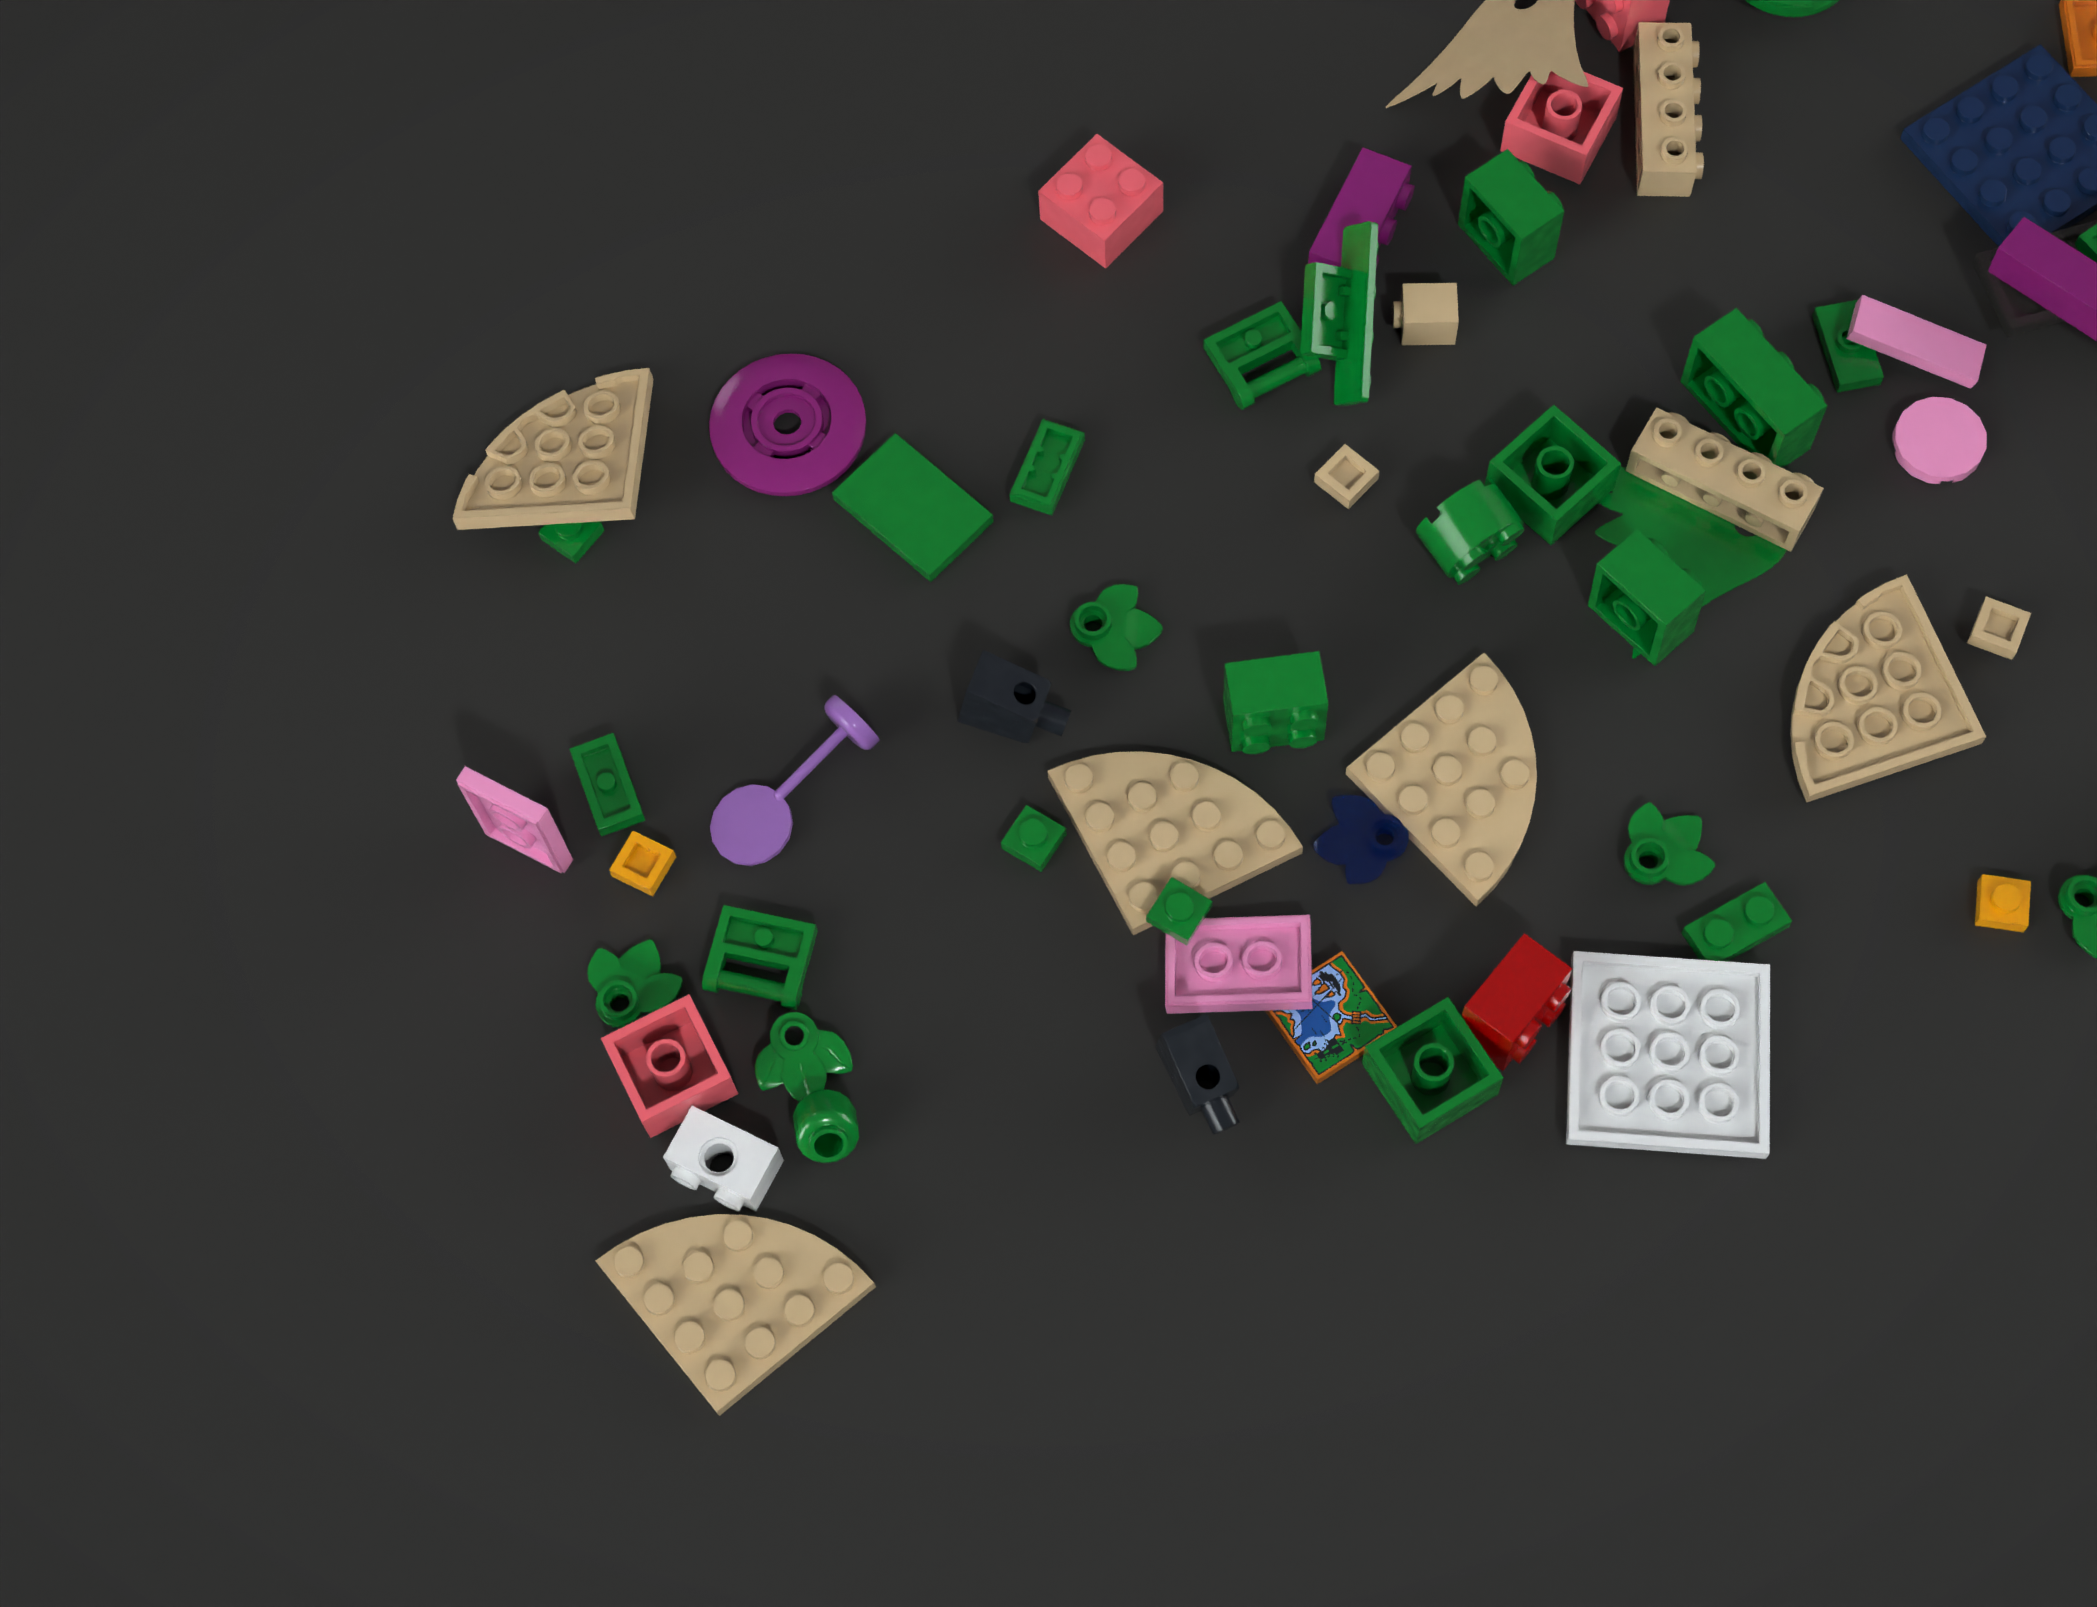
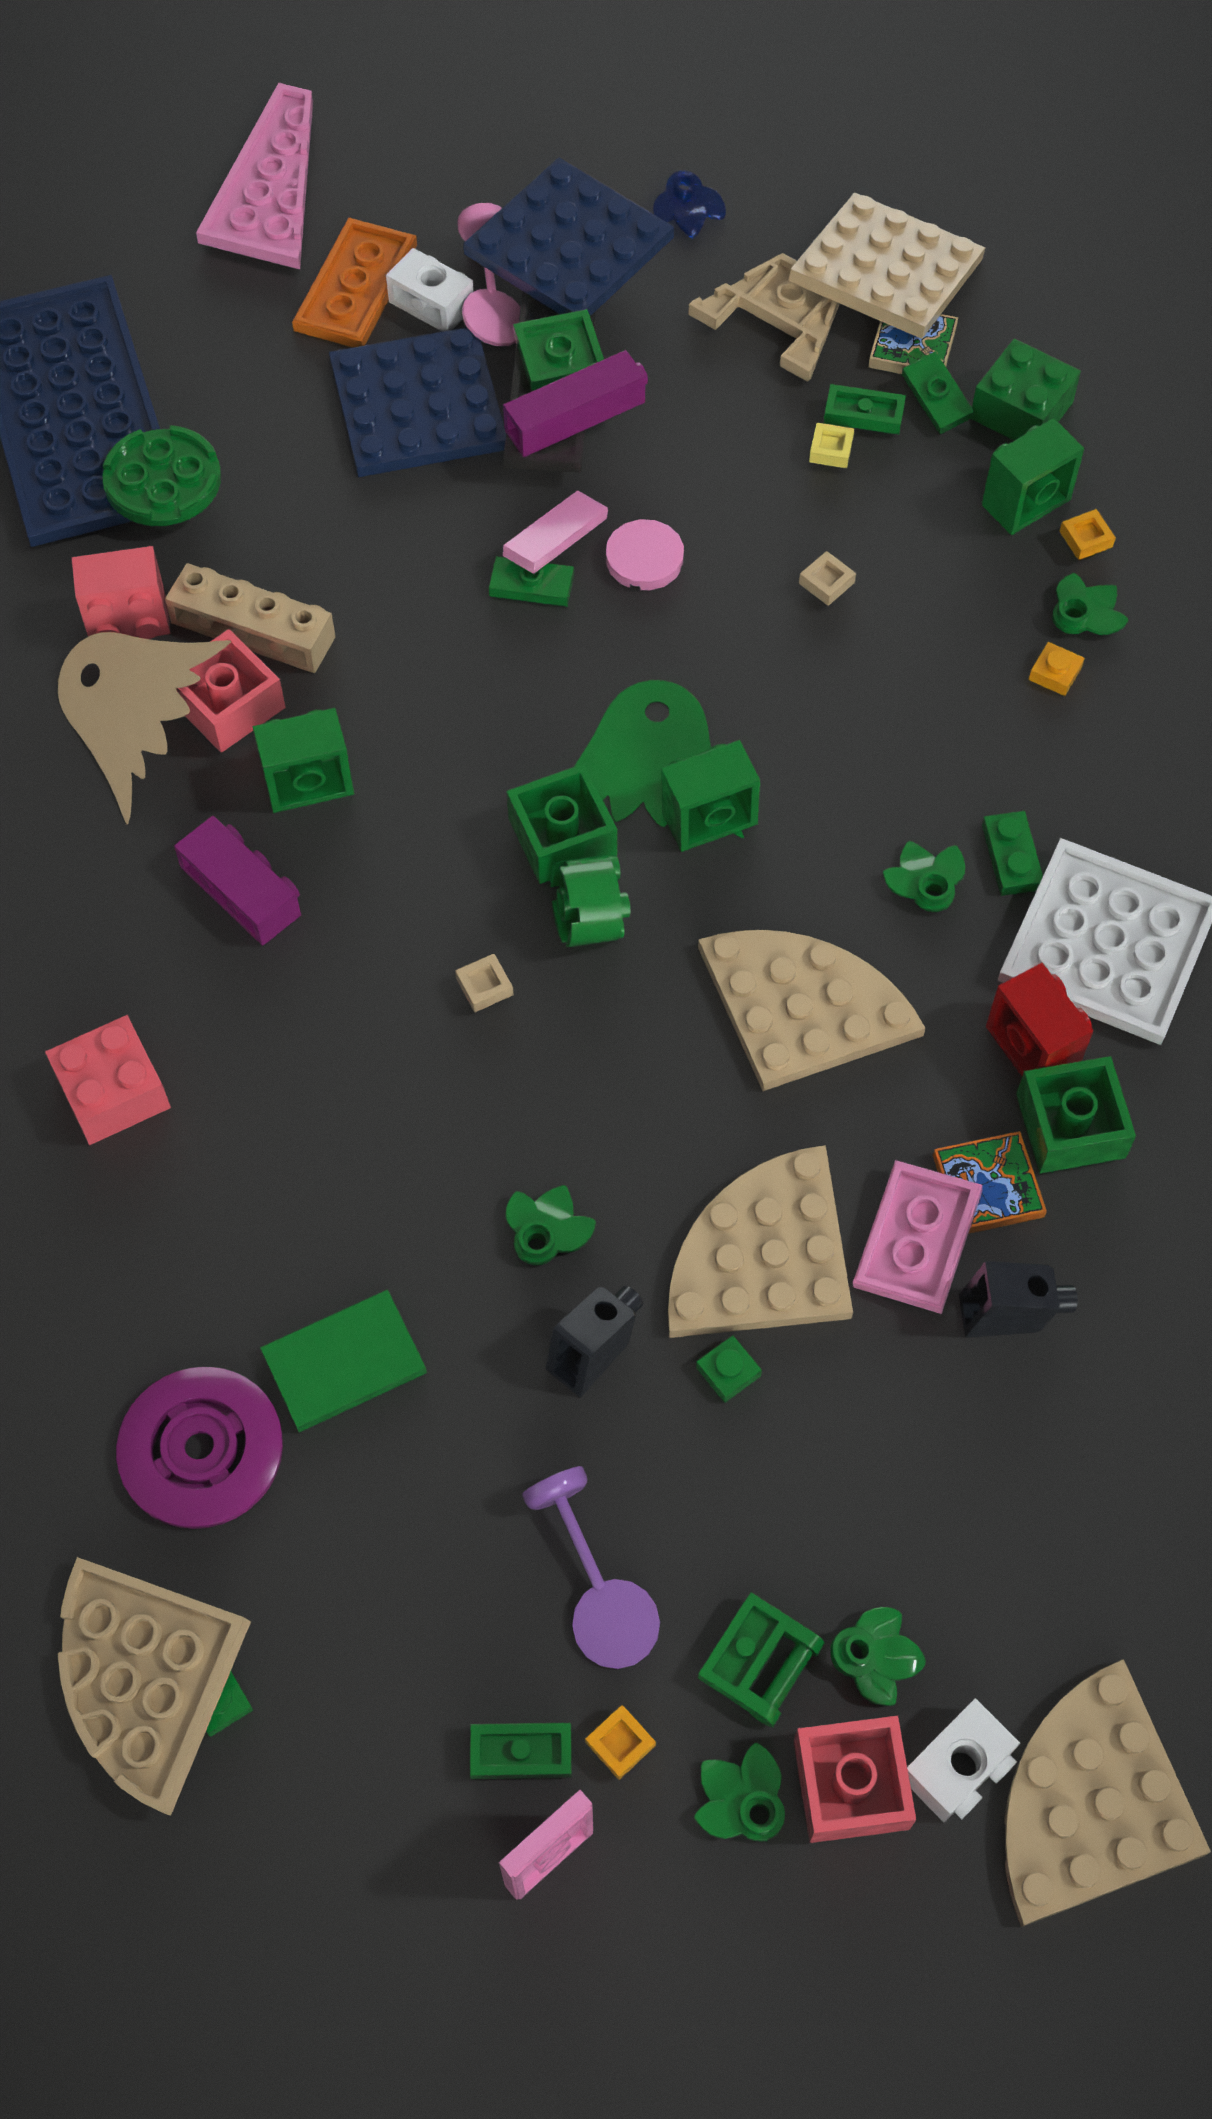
camera: 75 degrees left, 5 degrees down
(826, 1126) = (961, 1649): green head -> none
(1047, 467) = (359, 1225): green plate -> none
(1179, 911) = (857, 1263): green plate -> none
(1253, 344) = (316, 1007): green plate -> none
(1275, 702) = (692, 1111): green brick -> none
(1341, 311) = (335, 917): green bracket -> none
(1355, 841) = (833, 1104): clear blue plate -> none
(1427, 314) = (357, 861): tan brick -> none
(1724, 478) = (617, 705): tan brick -> none
(1753, 390) = (556, 651): green brick -> none
(1877, 696) = (851, 680): tan plate -> none

